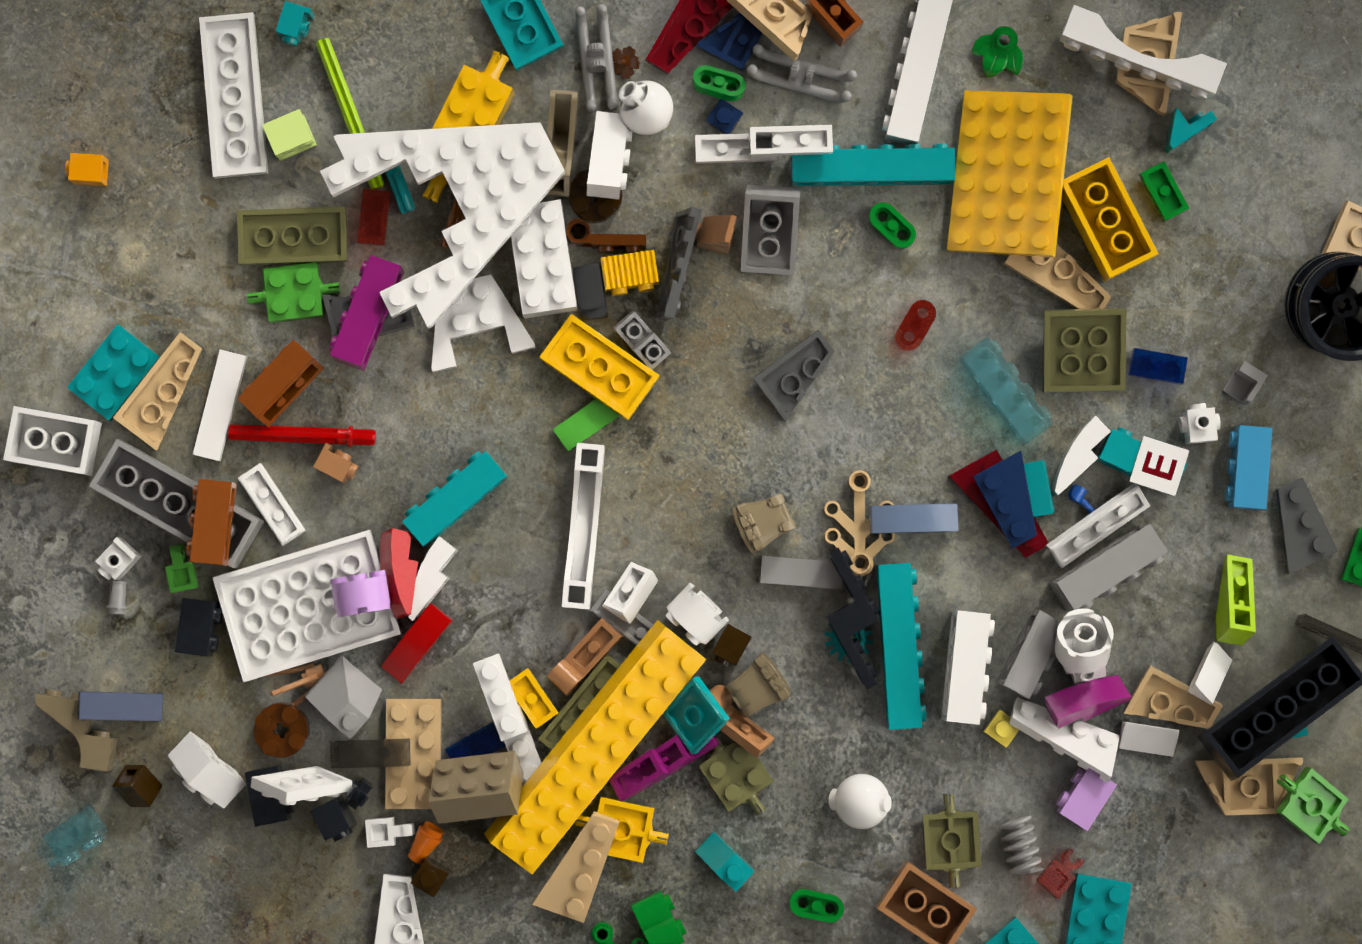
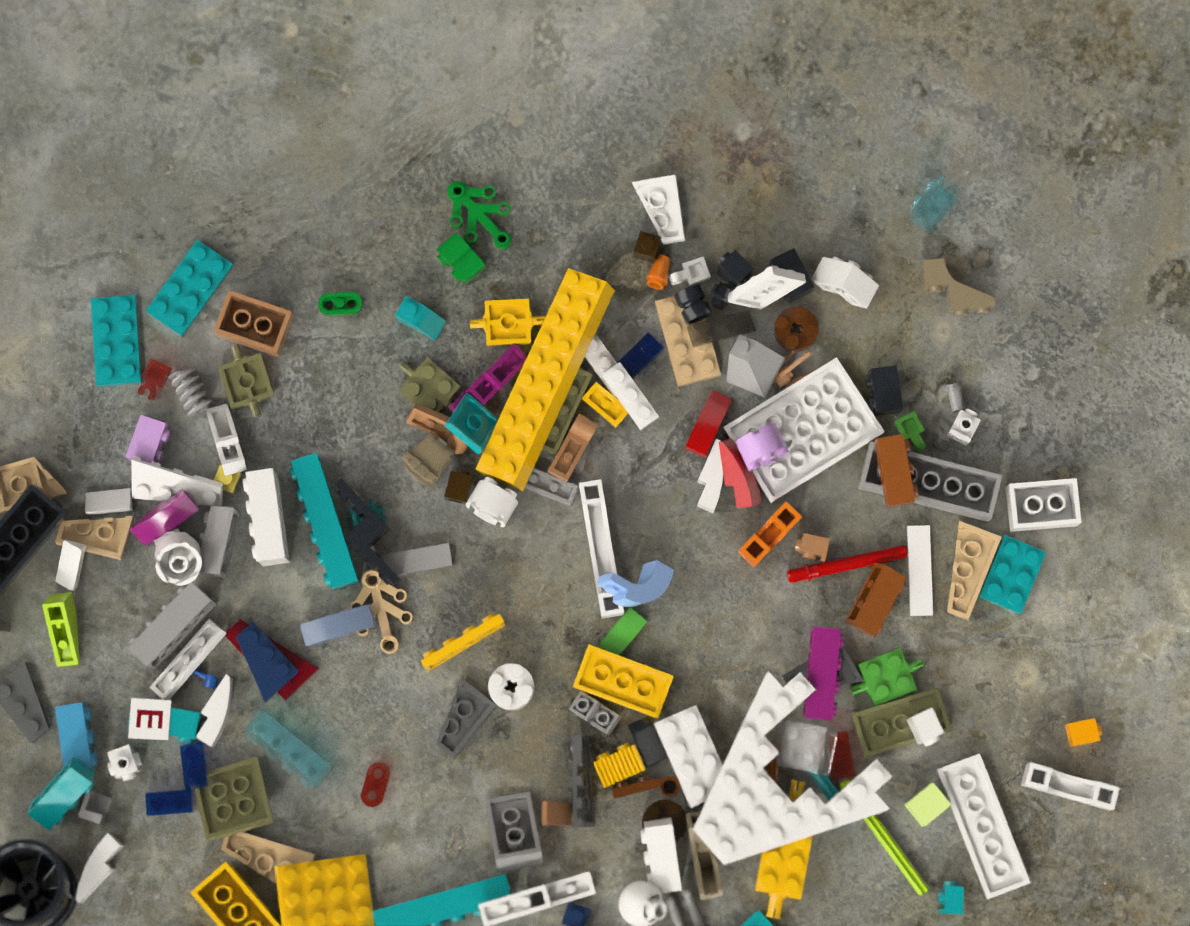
camera: 165 degrees right, 5 degrees down
(120, 111) = (1070, 787): none -> white arch
(120, 706) = (927, 313): dark blue tile -> none
(137, 786) = (896, 256): dark brown panel -> none
(265, 217) = (925, 727): none -> white brick
(271, 504) = (855, 503): white tile -> none
(381, 492) = (770, 534): none -> orange arch
(395, 789) = (693, 307): none -> black wheel
(408, 232) = (807, 748): none -> clear brick
(455, 498) = (709, 545): teal brick -> none
(474, 311) = (732, 702): white wing -> none
(476, 787) = (629, 322): dark tan brick -> none
(539, 464) = (651, 585): none -> light blue arch
(578, 873) = (533, 277): tan wing -> none
(630, 592) = (550, 508): white slope -> none
(740, 381) = (515, 674): none -> white brick
(762, 521) = (458, 590): dark tan piece -> none
(785, 457) = (455, 646): none -> yellow plate
(860, 801) = (325, 391): white brick -> none
(894, 224) = (414, 862): green plate -> none
(992, 775) = (226, 439): none -> white slope
(1039, 488) = (242, 676): teal slope -> none
(1119, 400) = (194, 765): none -> clear blue plate
(1255, 315) = (98, 866): none -> white slope
(1281, 405) = (61, 794): none -> teal brick

